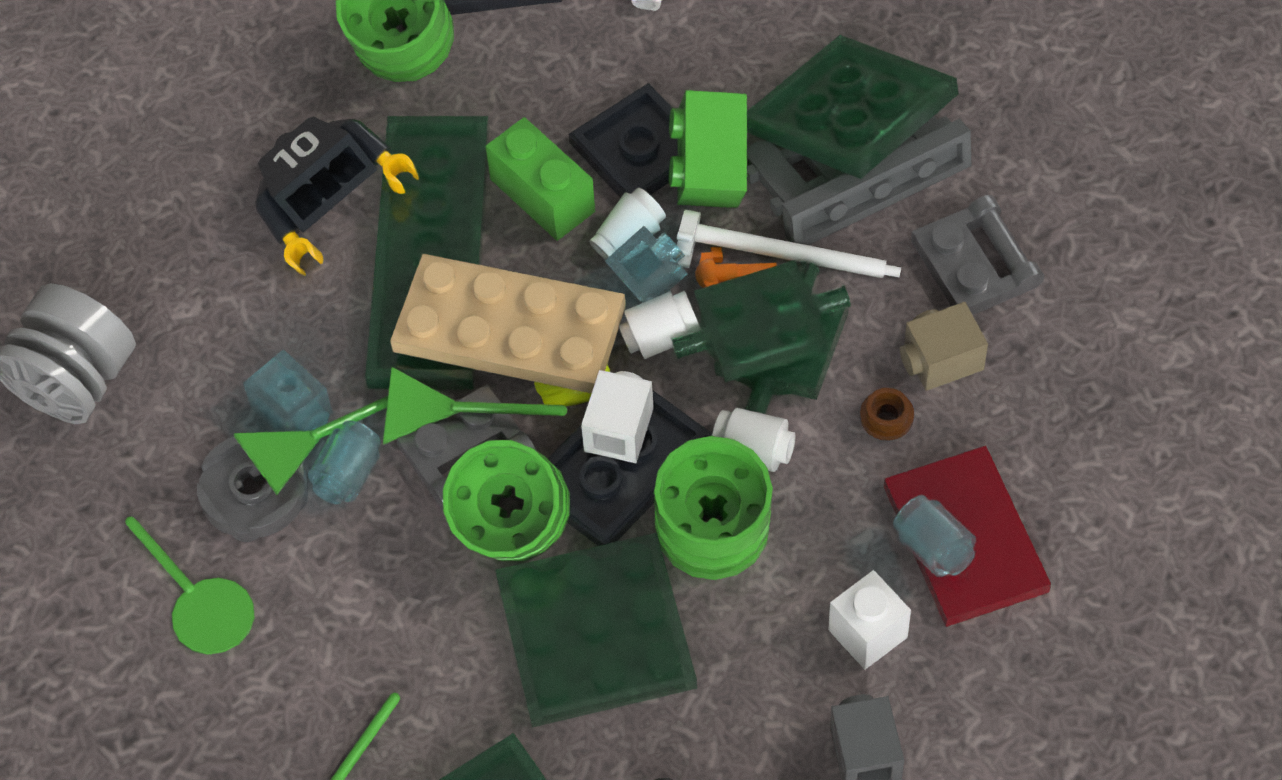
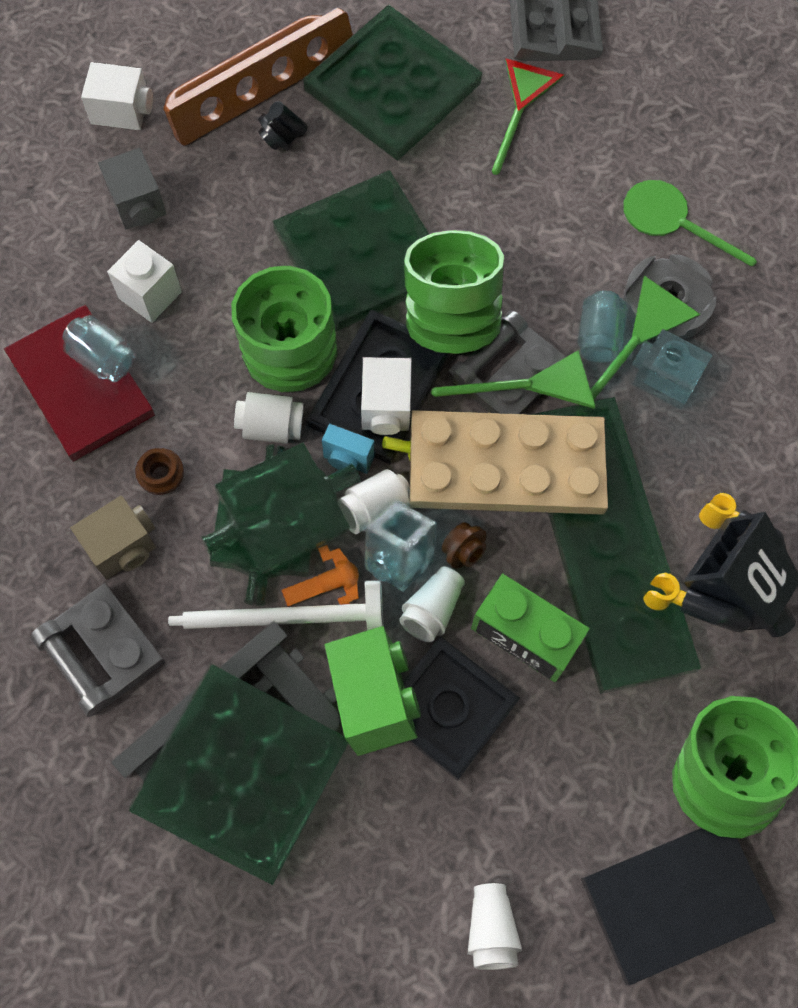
camera: 160 degrees right, 10 degrees up
(579, 268) = (464, 545): none -> reddish brown plate
(676, 383) = (345, 447): none -> medium azure plate

